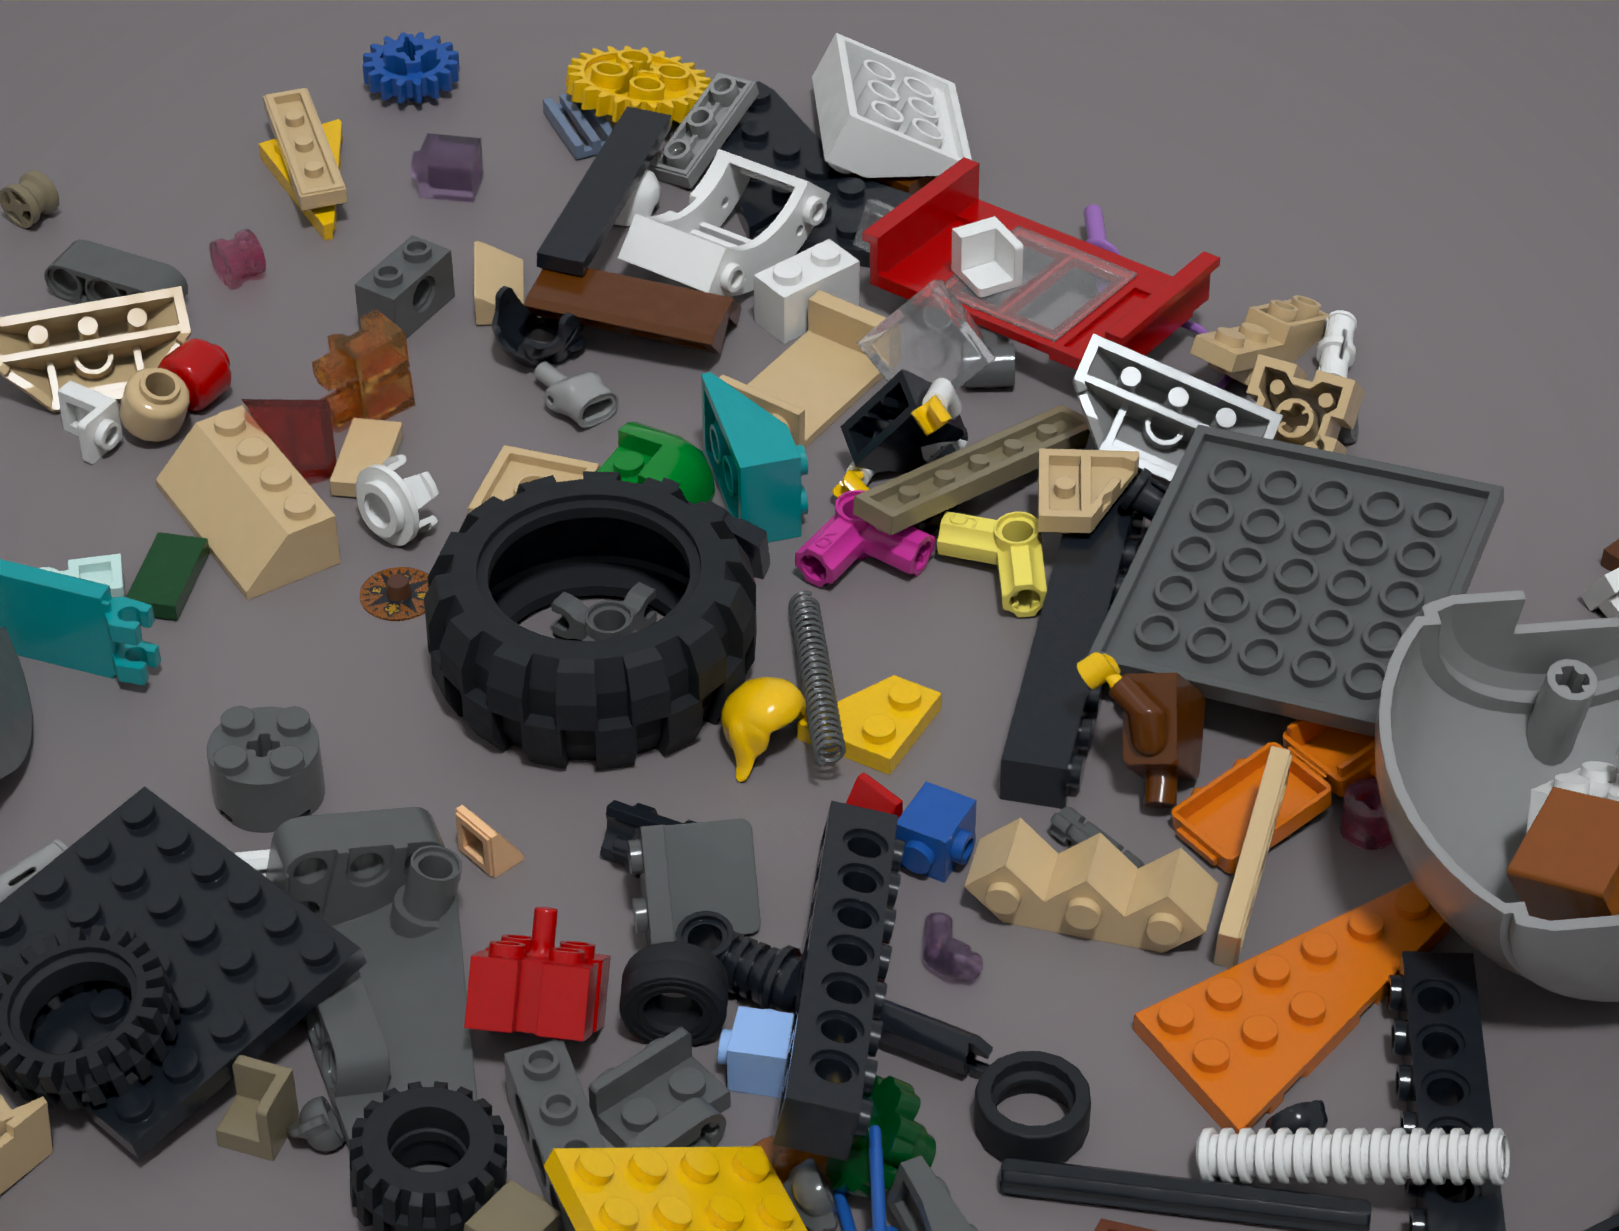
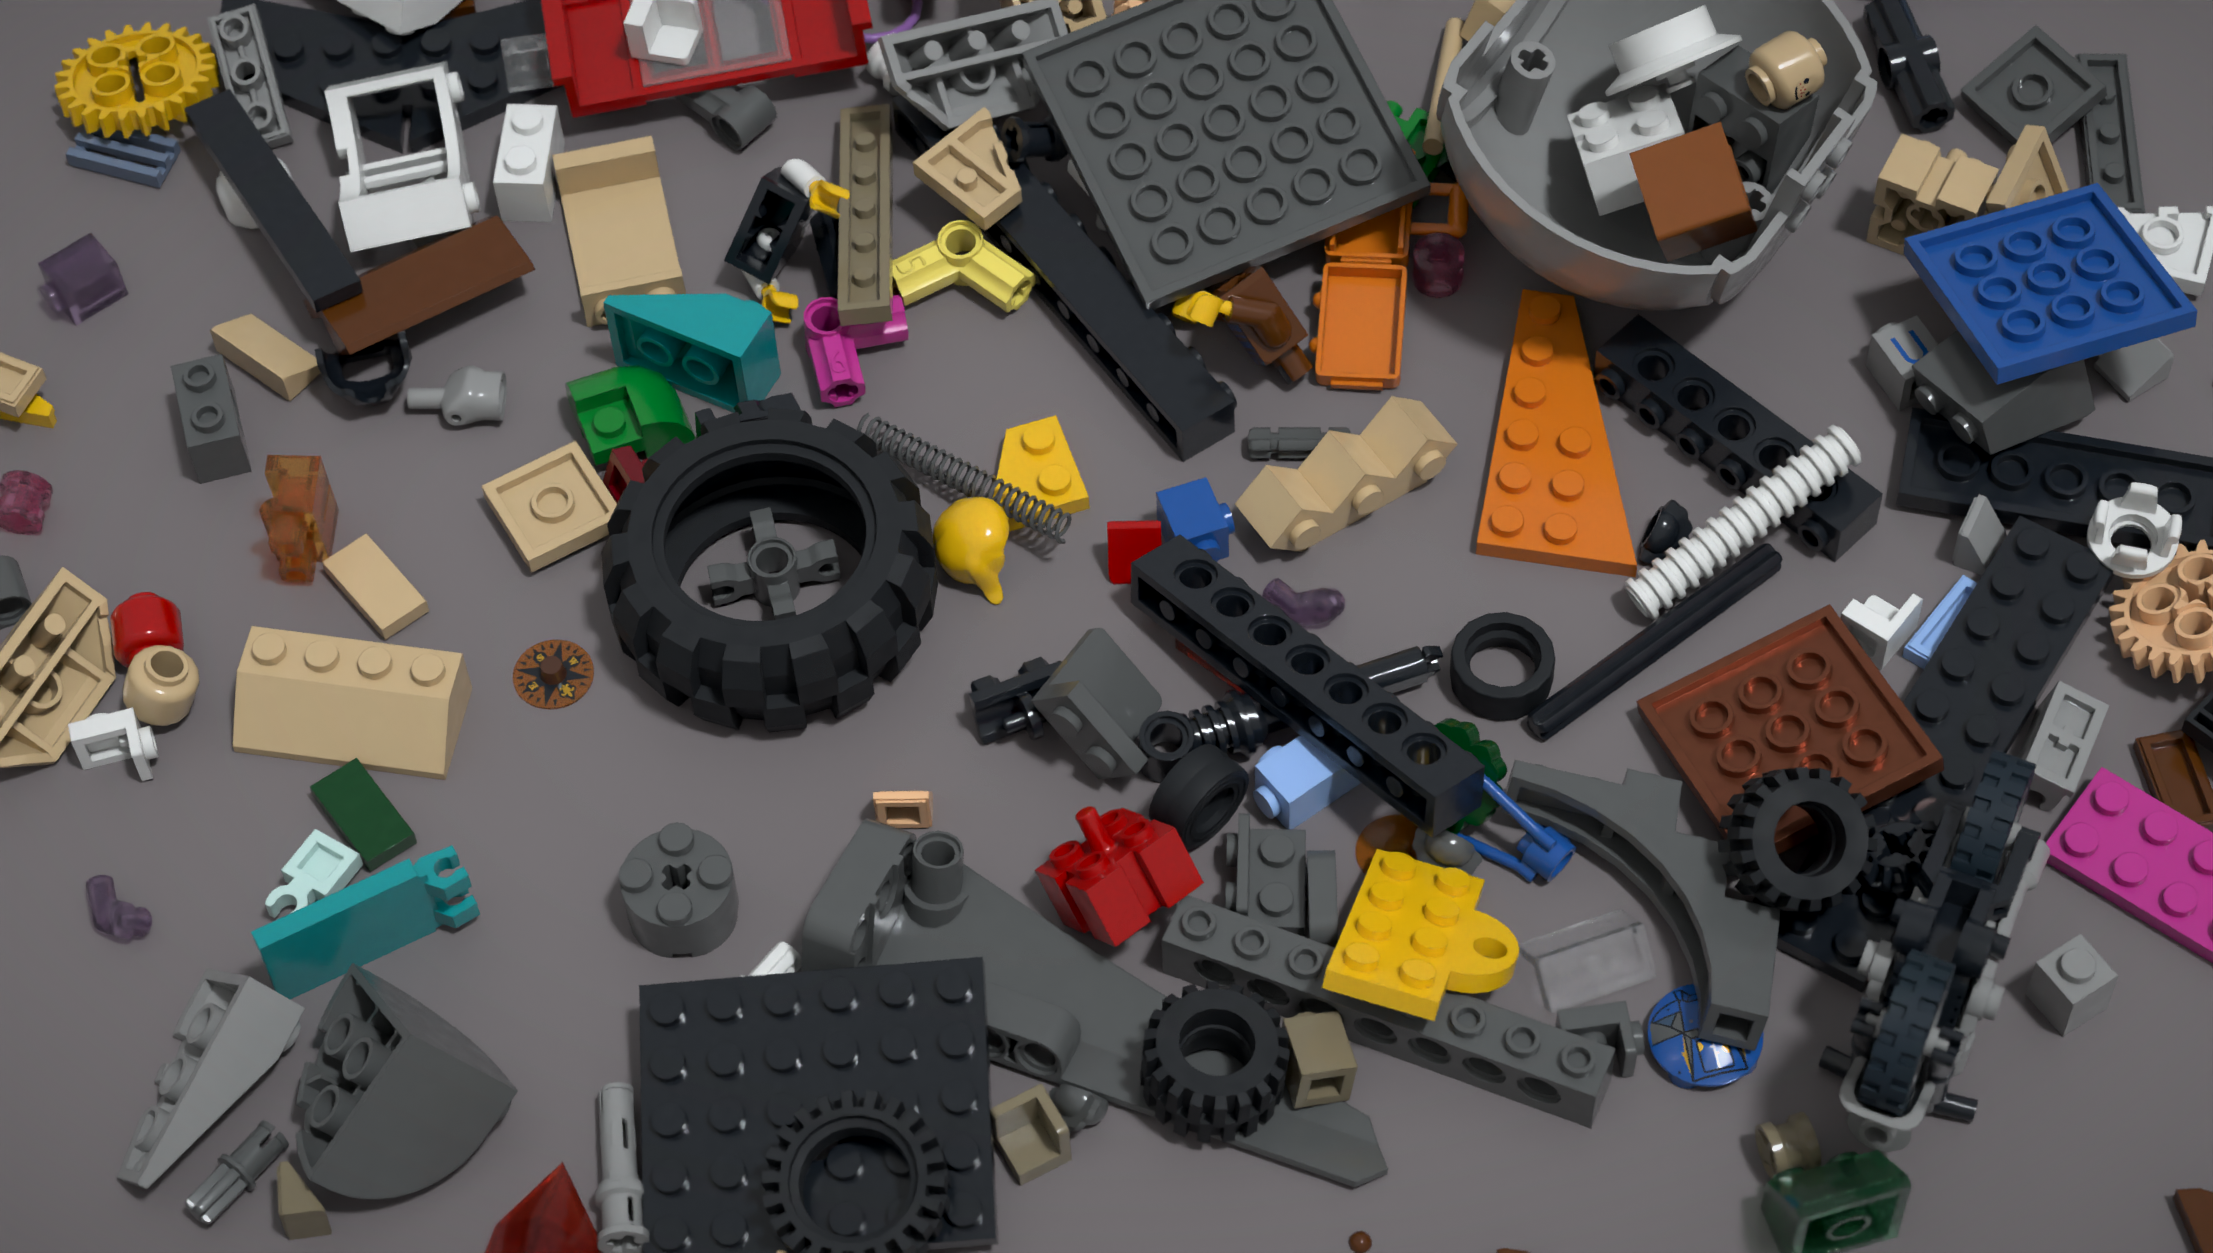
camera: 45 degrees left, 15 degrees up
(300, 431) = (308, 606): clear red slope -> none
(388, 497) = (486, 593): white piece -> none
(929, 338) = (702, 139): clear slope -> none
(1253, 857) = (1424, 361): tan tile -> none

